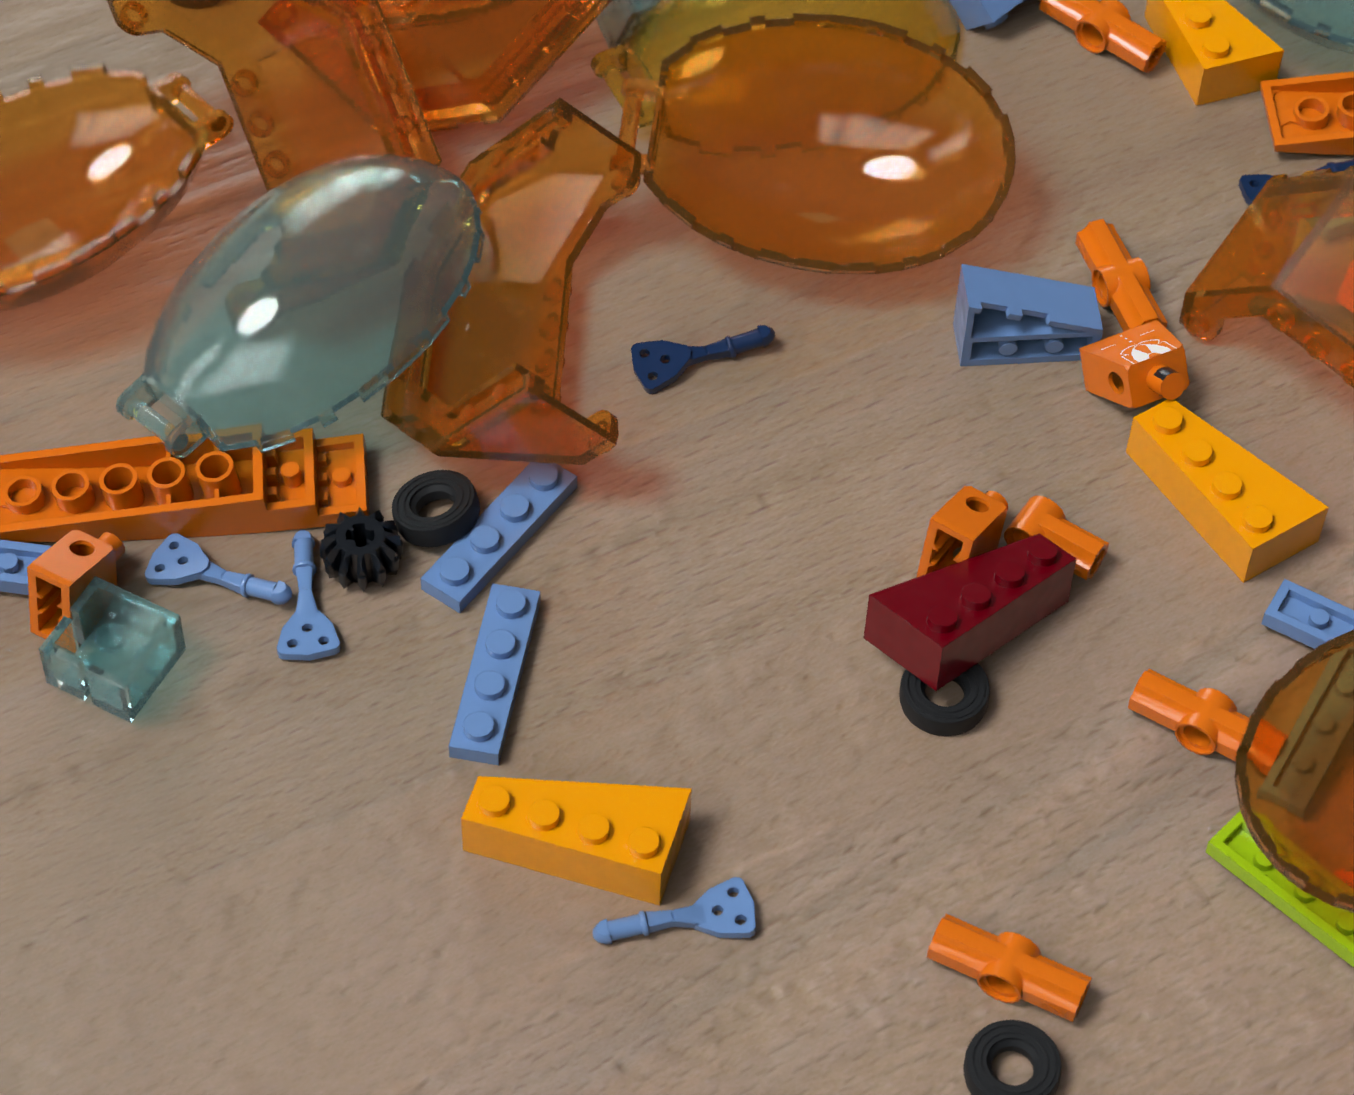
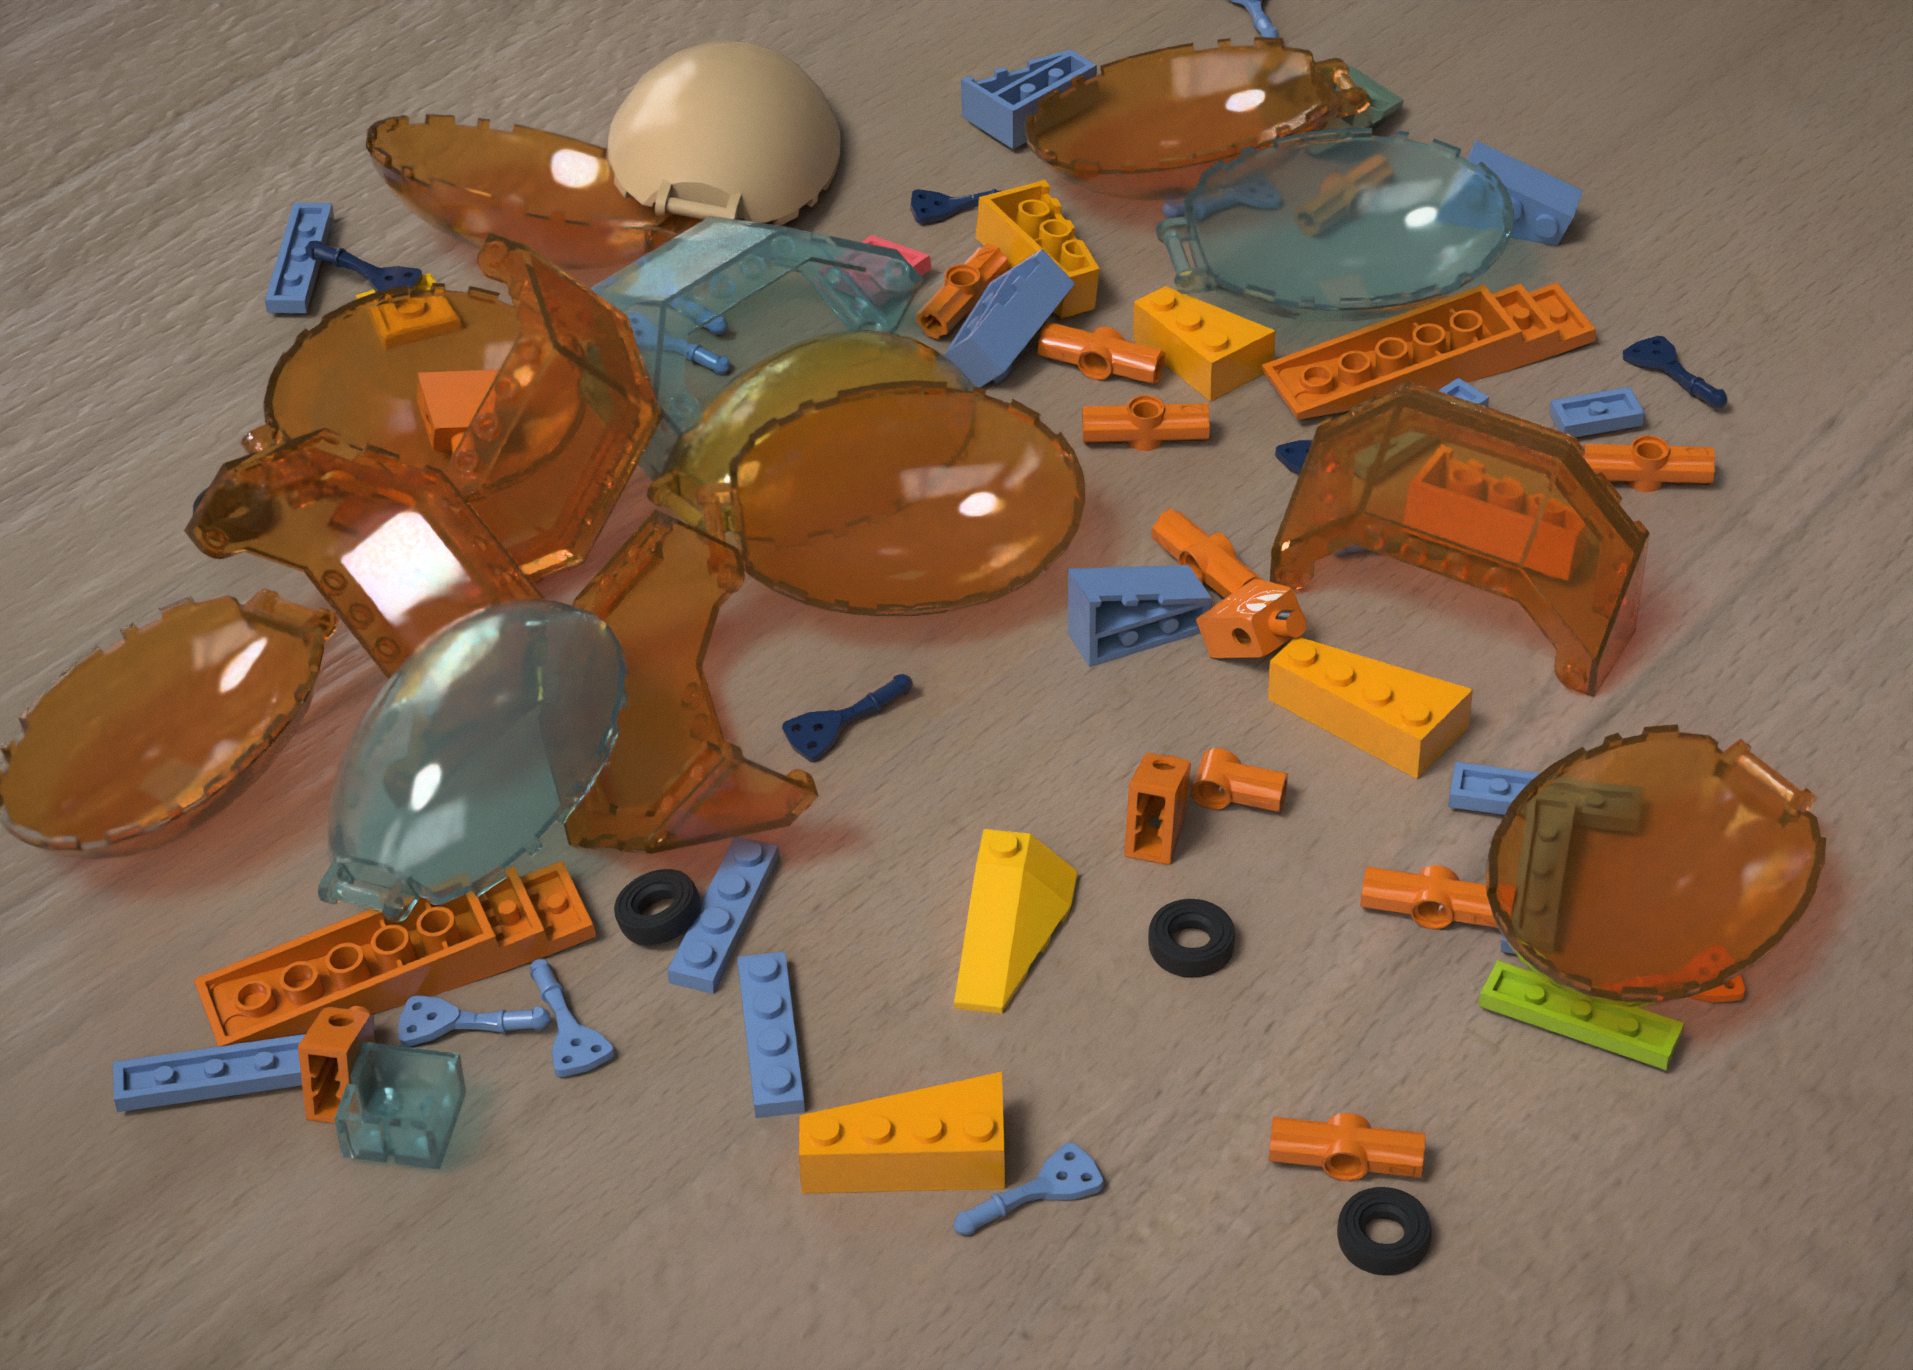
camera: 15 degrees left, 10 degrees down
(361, 549) = (601, 959): black gear -> none
(778, 611) = (1013, 909): none -> yellow wedge
(968, 609) = (1187, 858): dark red wedge -> none
(1116, 115) = (1145, 423): none -> orange piece

